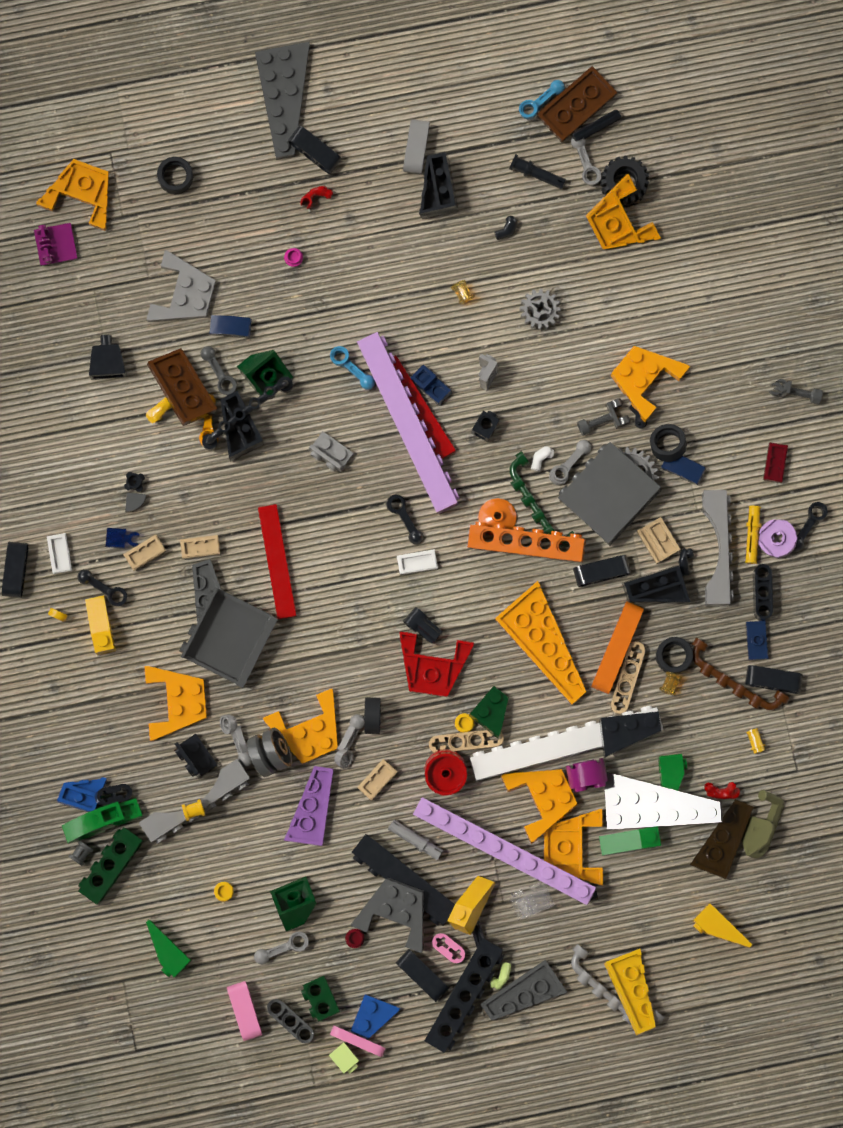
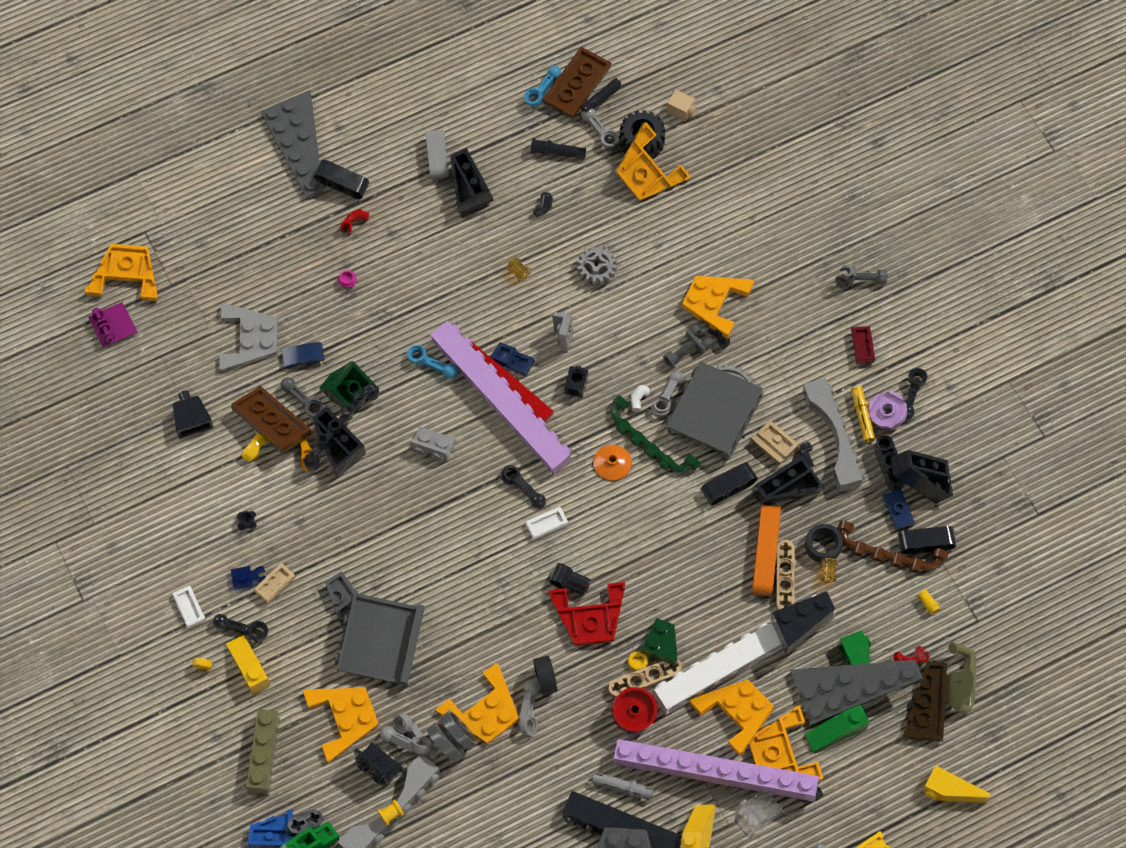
camera: 15 degrees left, 15 degrees down
(15, 569) = (147, 632): black beam -> none
(92, 716) = (263, 752): none -> olive brick
(134, 501) = (251, 538): dark grey tile -> none
(170, 161) = (219, 246): black tyre -> none
(200, 547) = (328, 563): tan plate -> none
(213, 731) = (418, 744): none -> light grey piece
(277, 562) = (408, 558): red tile -> none
(311, 814) = (510, 790): medium lavender wing -> none
(377, 779) = (567, 738): tan plate -> none
(477, 541) = (657, 480): orange brick -> none
(538, 635) = (687, 560): light orange wing -> none
(587, 774) = (774, 674): magenta brick -> none
(664, 430) = (760, 361): black tyre -> none
(673, 158) = (681, 105): none -> tan brick
(686, 469) = (777, 370): dark blue slope -> none
(790, 616) = (924, 474): none -> black wedge

